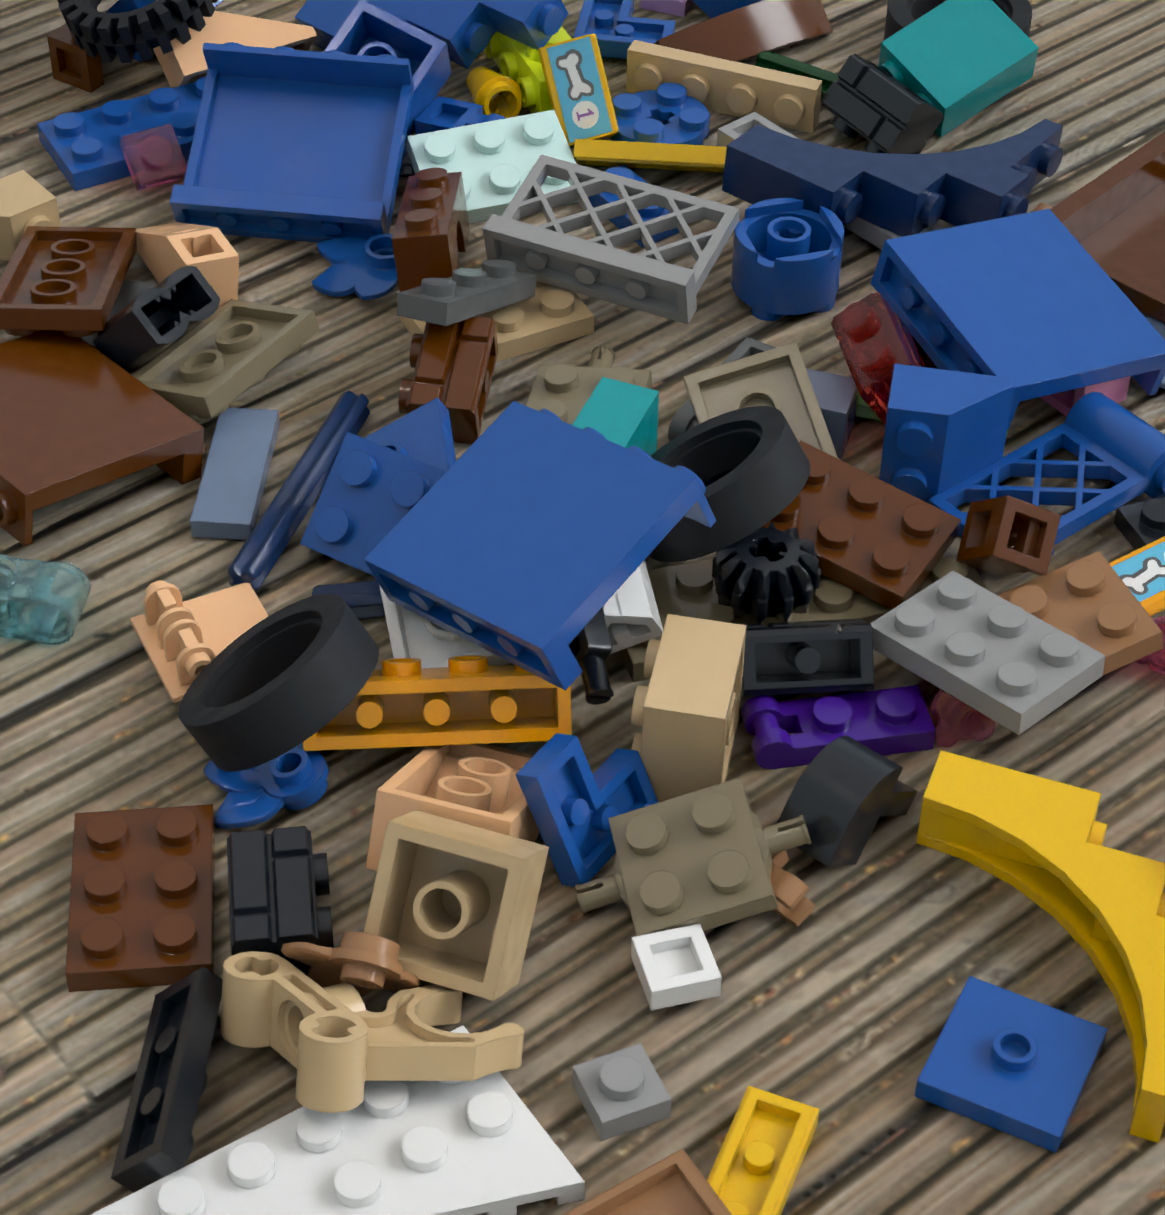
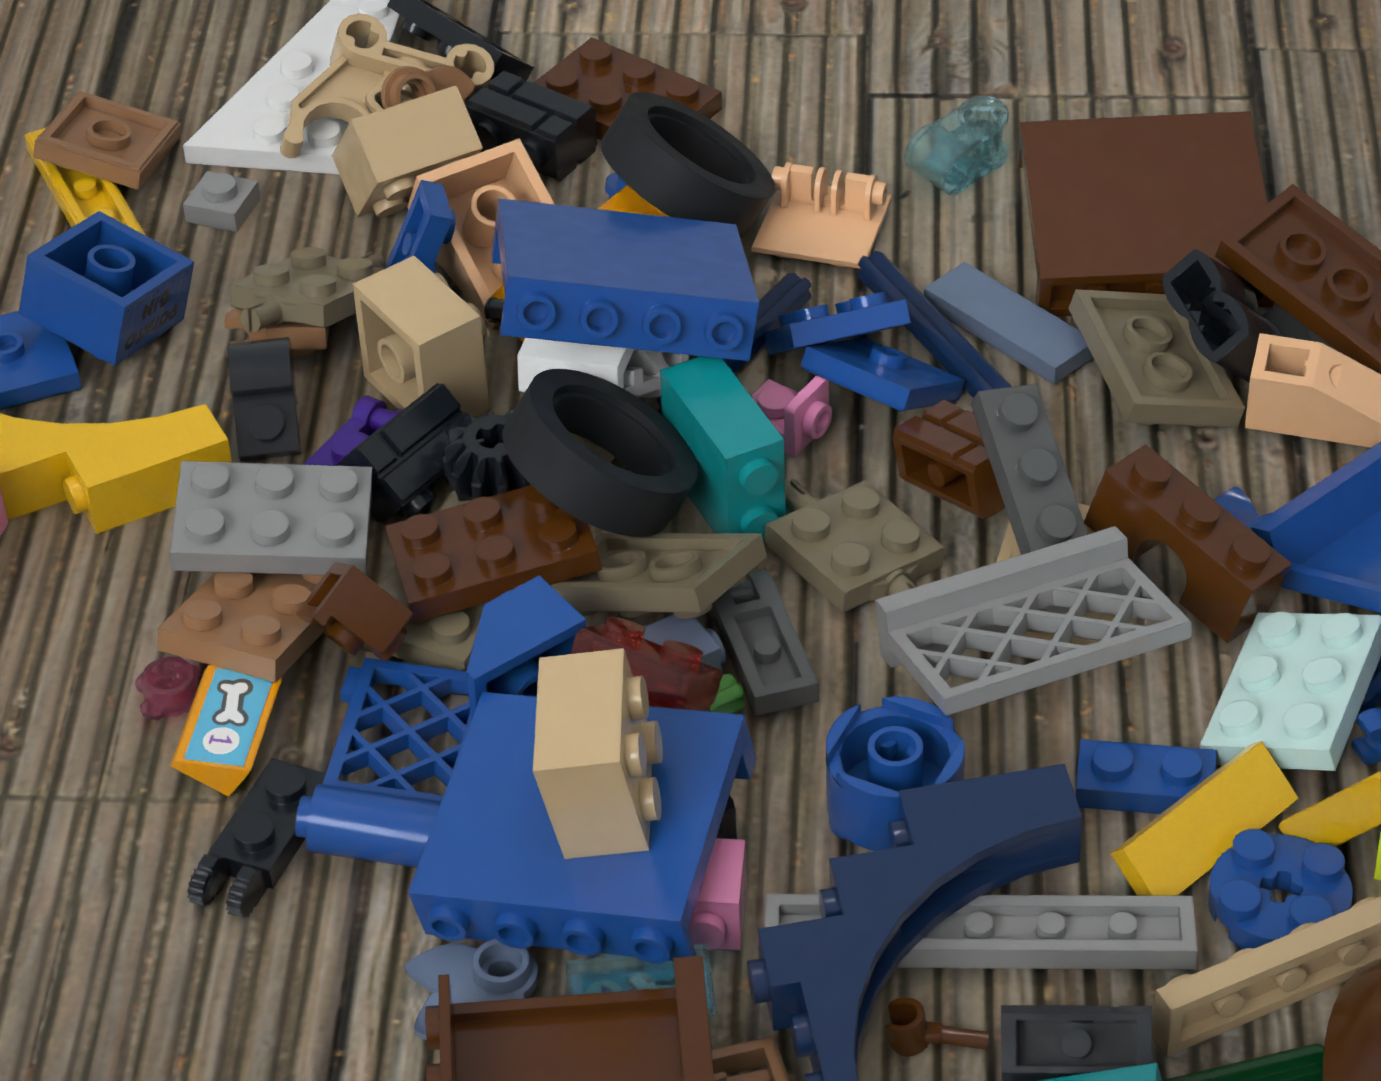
camera: 135 degrees right, 0 degrees up
(675, 966) = (255, 249): white plate -> none
(881, 992) = (105, 287): none -> blue brick
(1026, 235) = (596, 753): none -> tan brick

